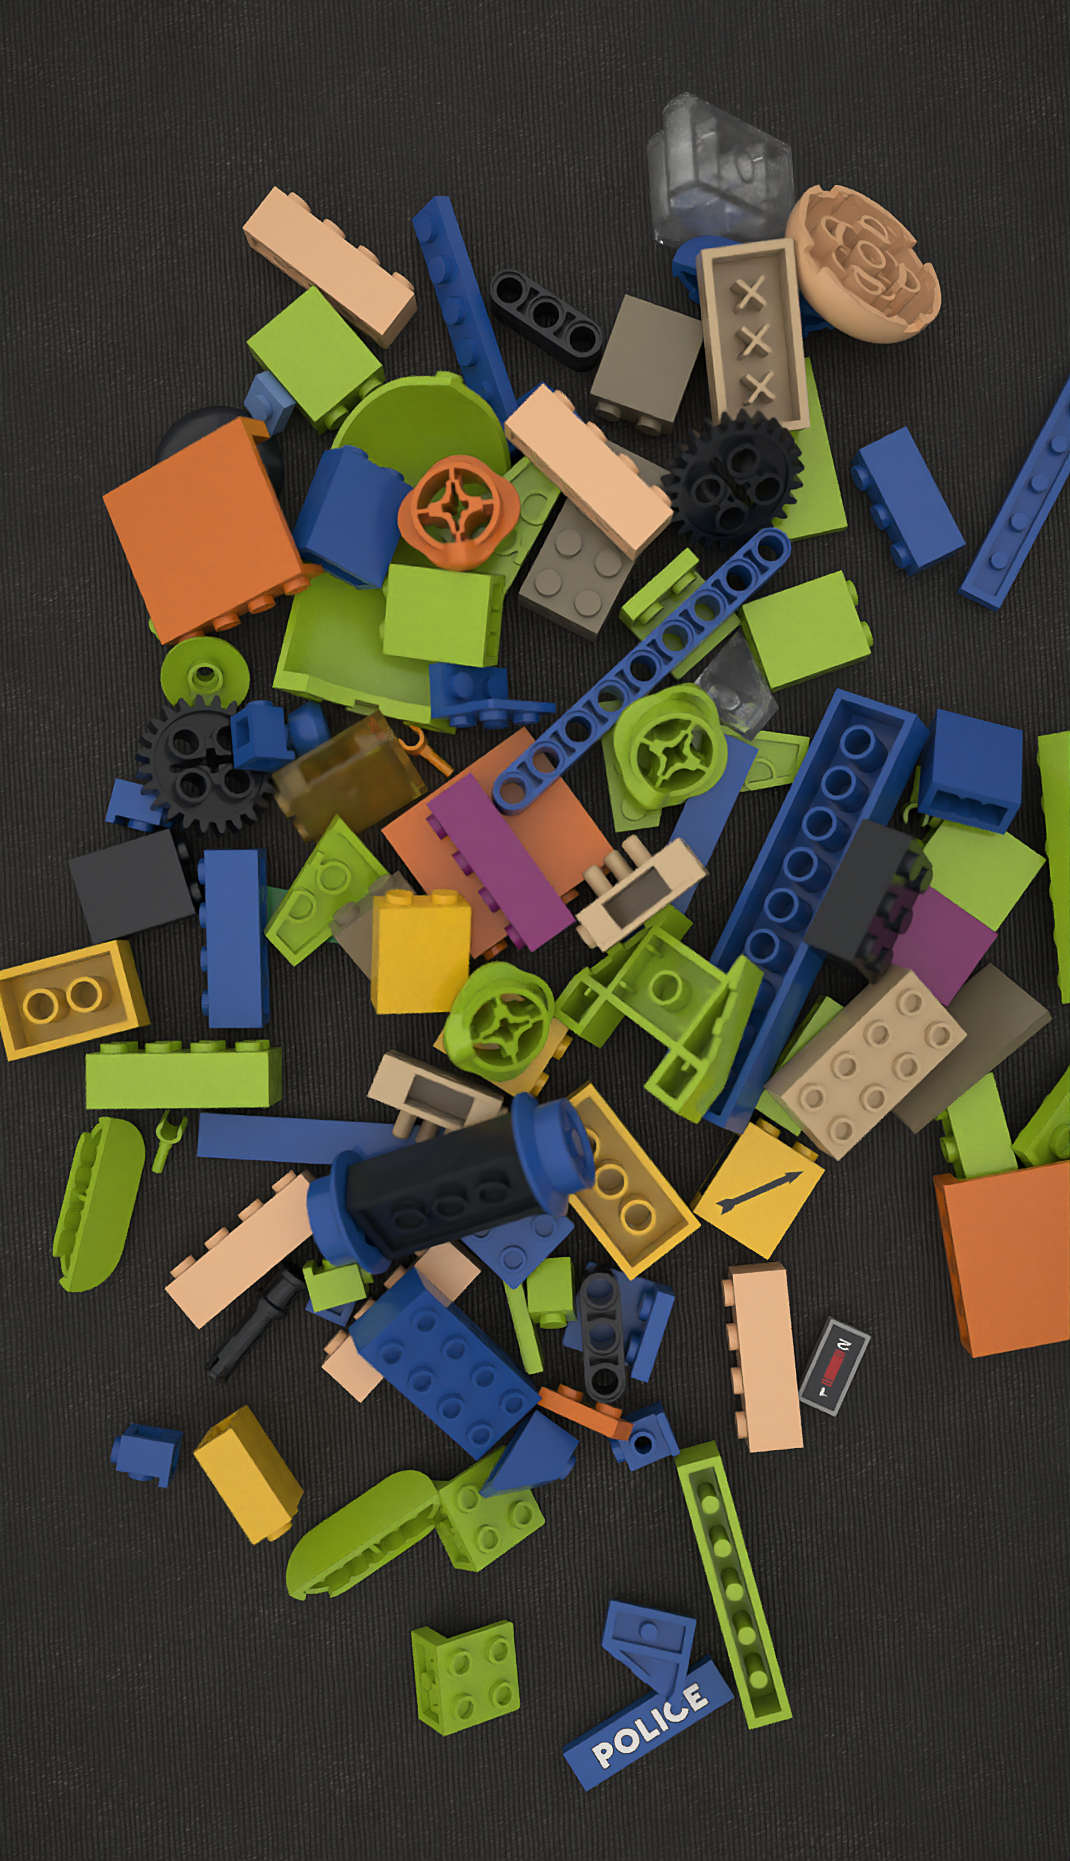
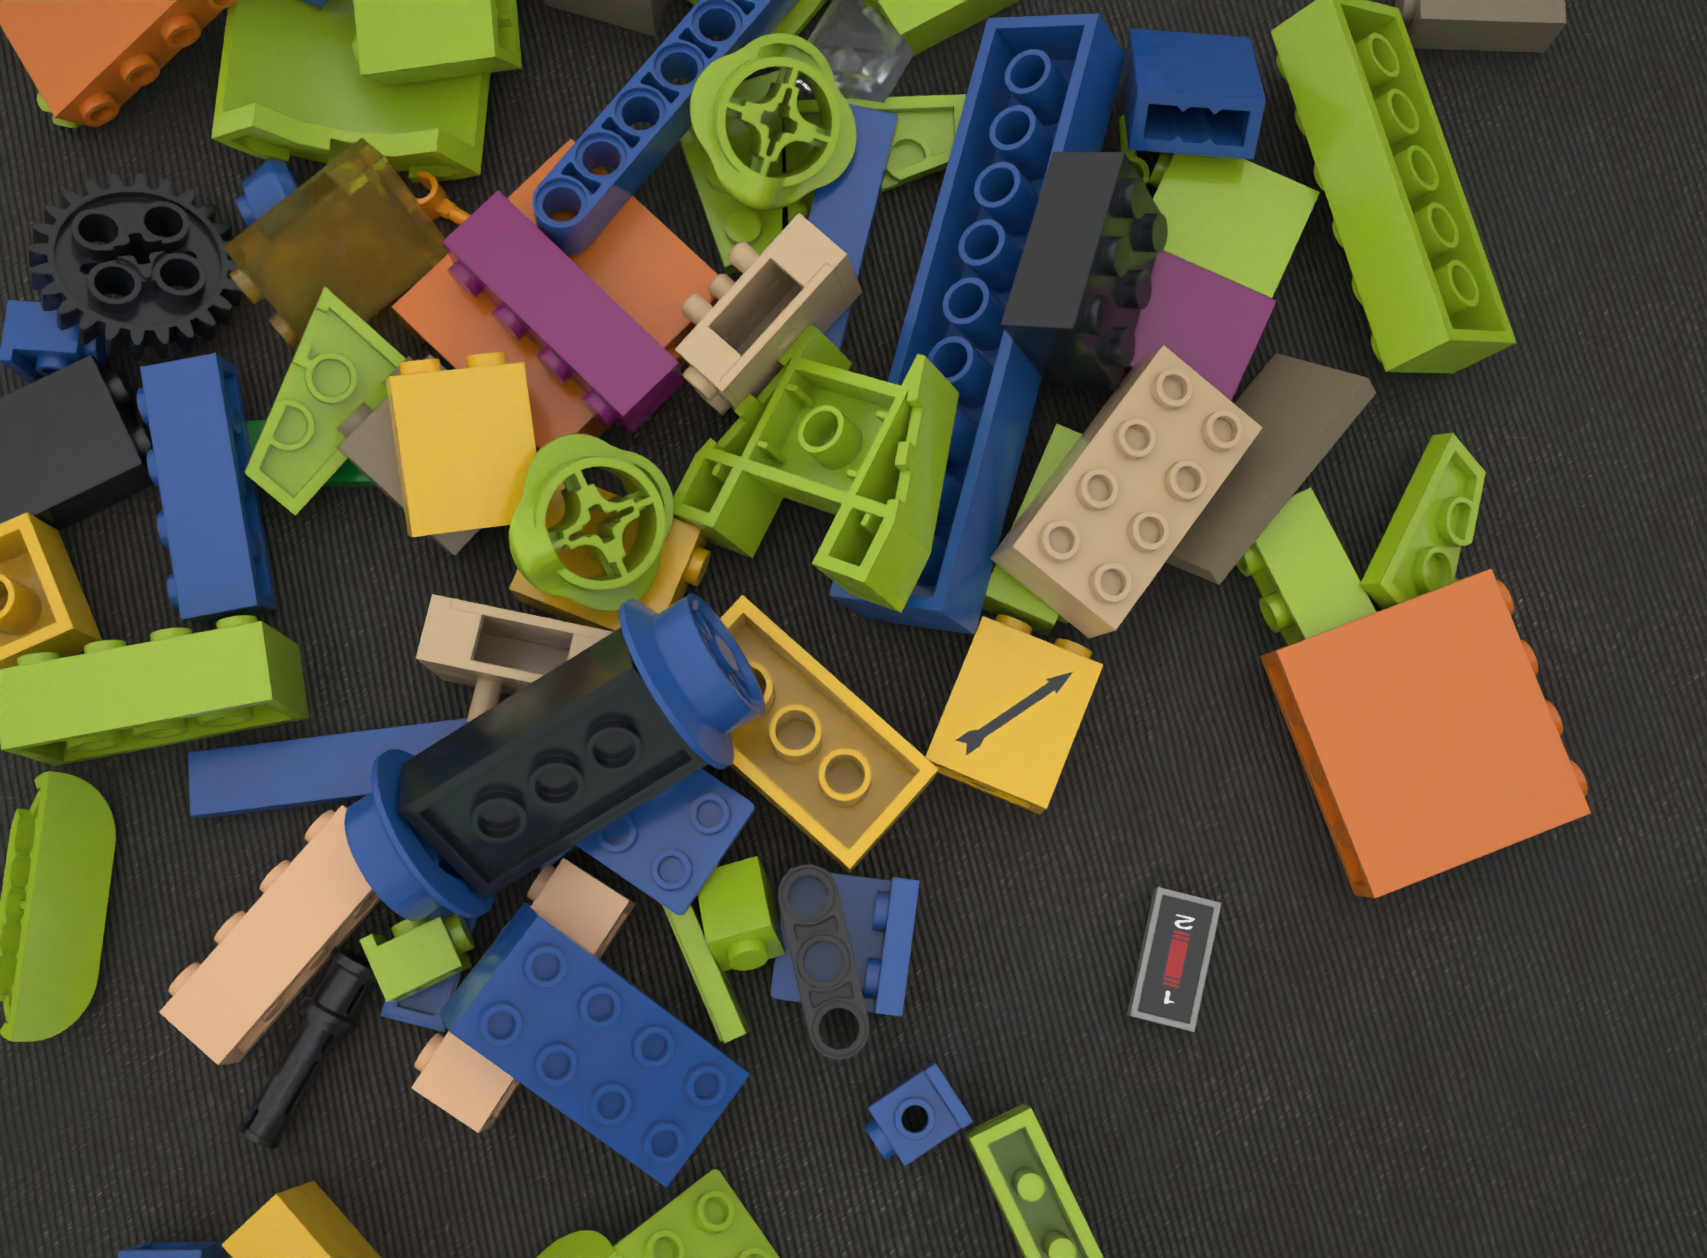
camera: 10 degrees left, 10 degrees down
(168, 1136) = (144, 797): lime hand -> none
(229, 676) = (115, 117): lime dish -> none
(260, 738) = (203, 209): blue brick -> none
(479, 695) = (507, 110): blue bracket -> none
(532, 1458) = (752, 1174): blue slope -> none
(600, 1418) = (845, 1088): orange plate -> none
(764, 1357) = (1071, 960): light nougat brick -> none

